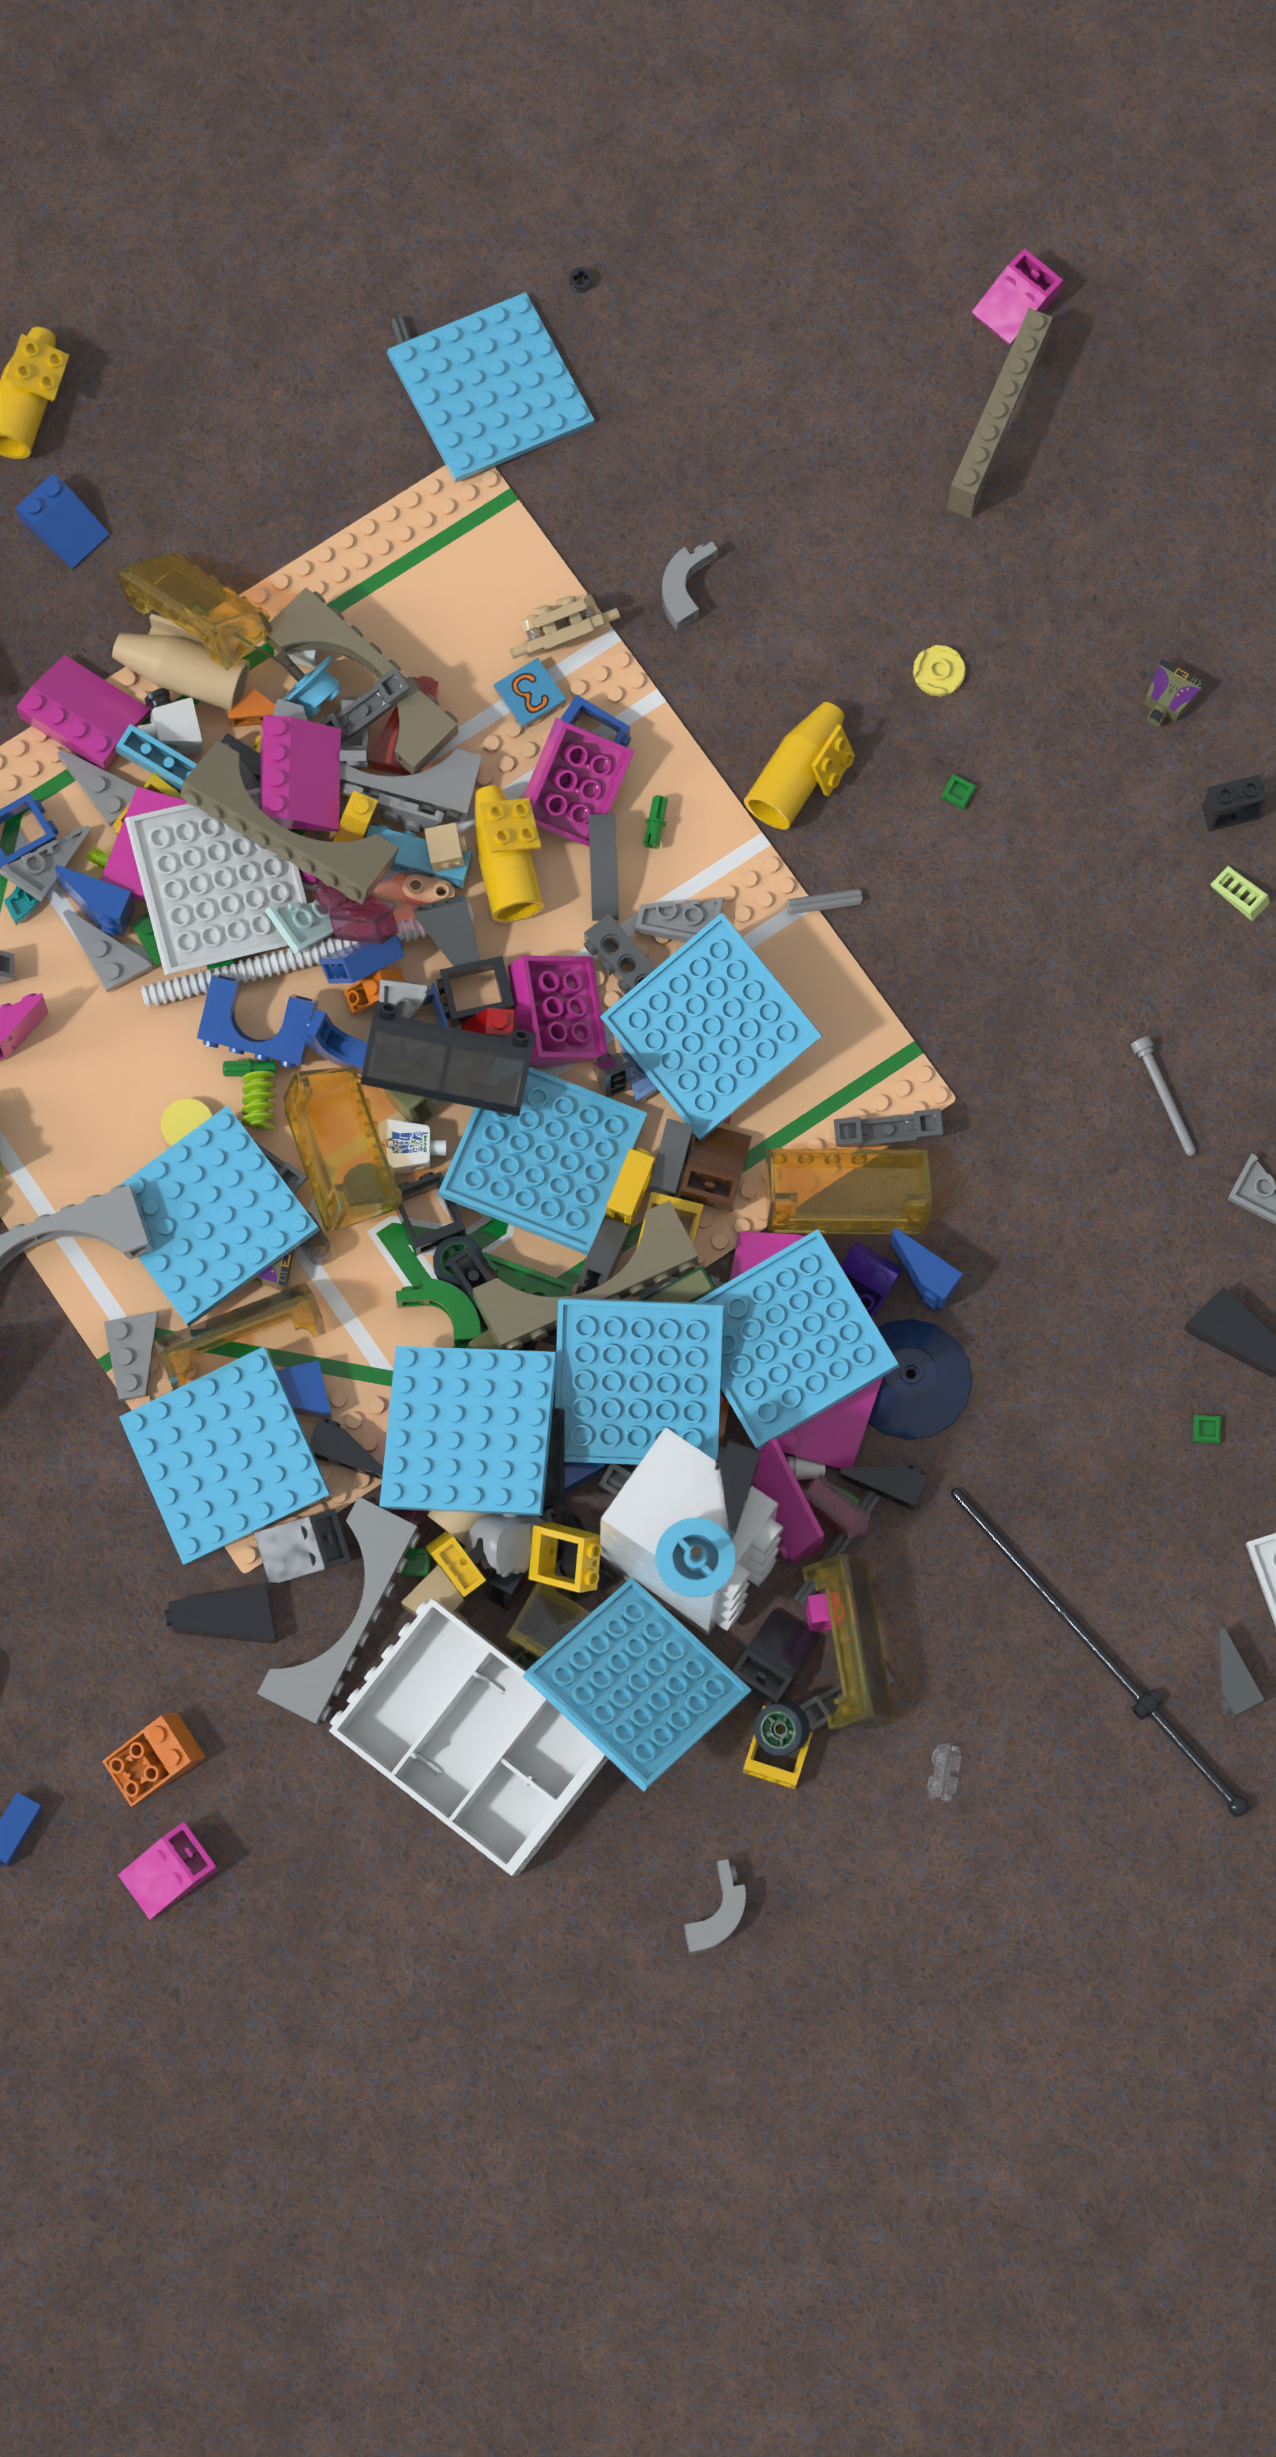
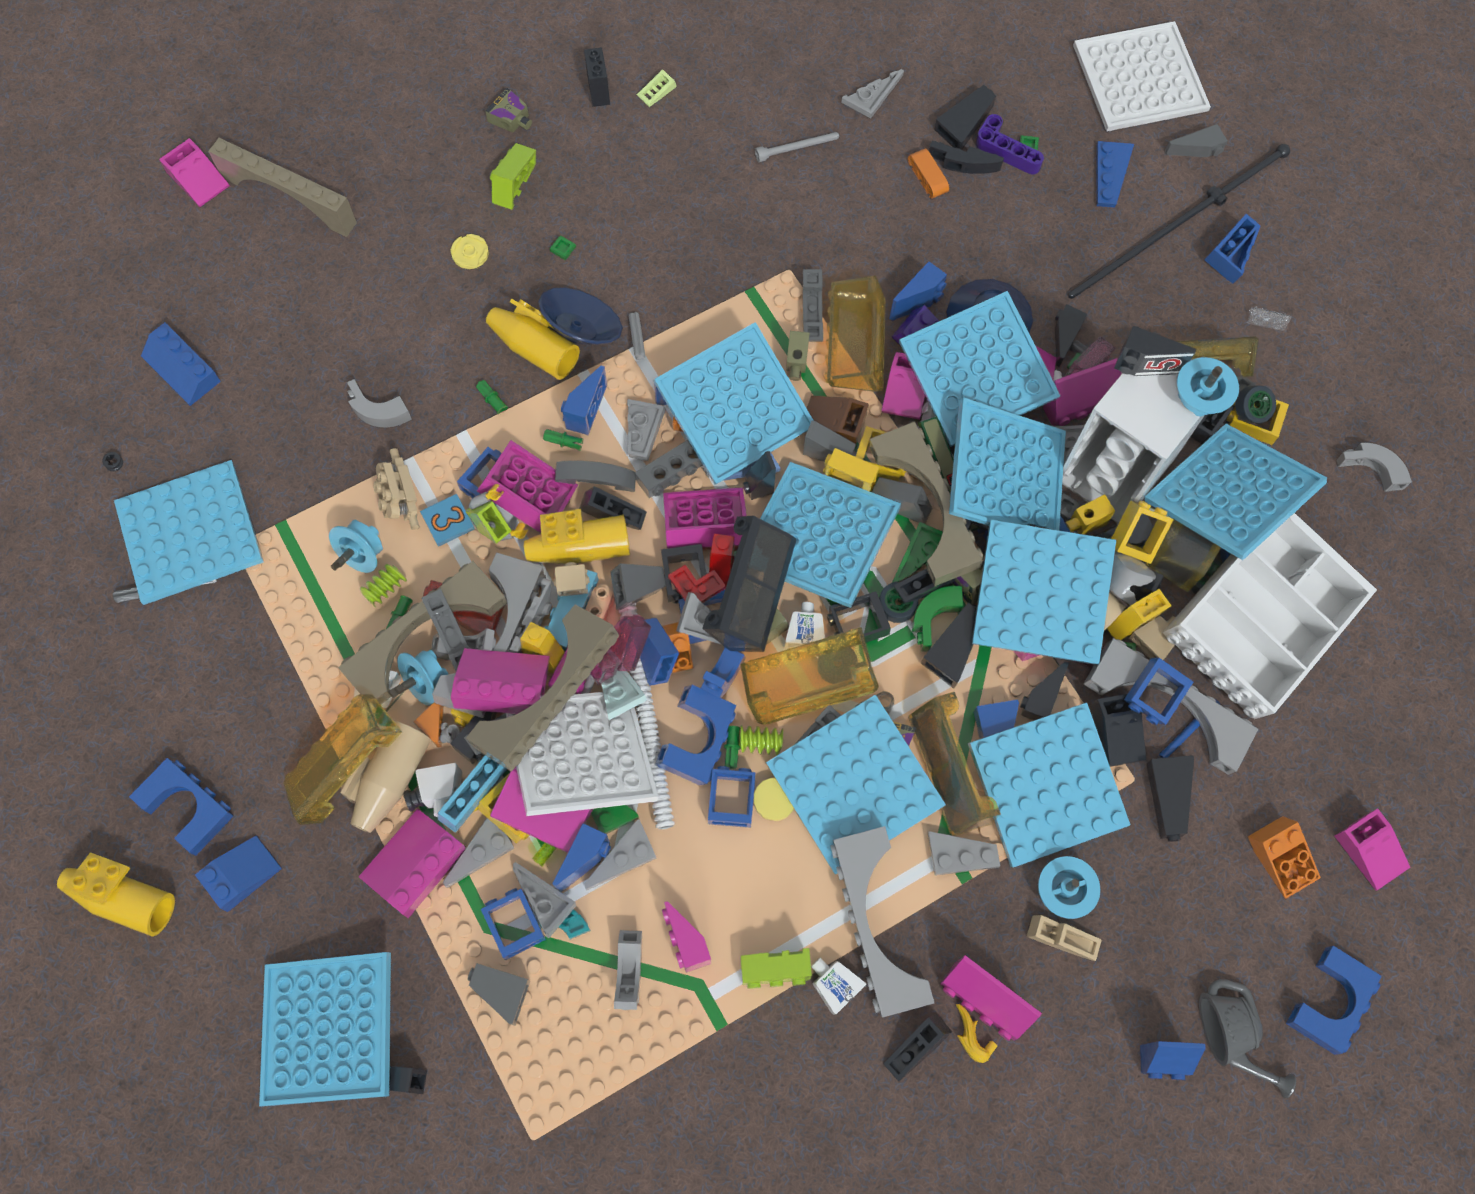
camera: 85 degrees left, 5 degrees down
(36, 1482) = (1064, 937): none -> tan slope
(94, 1479) = (1069, 887): none -> medium azure piece
(131, 478) = (209, 815): none -> blue arch
(161, 1049) = (731, 819): none -> blue window
(249, 727) = (453, 732): none -> light grey plate
(308, 1638) = (1181, 738): none -> blue bar
(371, 1593) = (1171, 674): none -> blue window
(390, 1325) = (952, 649): none -> black slope
(397, 653) = (401, 609): none -> green axle
(430, 628) = (382, 584): none -> lime piece
(444, 998) = (703, 588): none -> red plate
(477, 587) = (355, 546): none -> medium azure piece
(522, 742) = (489, 520): none -> torso
(558, 894) = (604, 505): none -> black slope
(589, 1494) = (1091, 516): none -> yellow torso
(703, 840) = (584, 402): none -> blue slope
(715, 726) = (491, 396): none -> green axle
(725, 333) = (178, 364): none -> blue slope
(806, 1110) = (797, 354): none -> olive torso
(854, 822) = (580, 316): none -> dark blue dish
(1050, 1720) = (1234, 249): none -> blue wedge
(1065, 708) = (511, 173): none -> lime wedge
(1134, 1282) = (929, 173): none -> orange beam
(1163, 1343) = (973, 161): none -> black slope
(1175, 1550) = (1111, 170): none -> blue wing
(1192, 1399) = (1013, 151): none -> dark purple beam

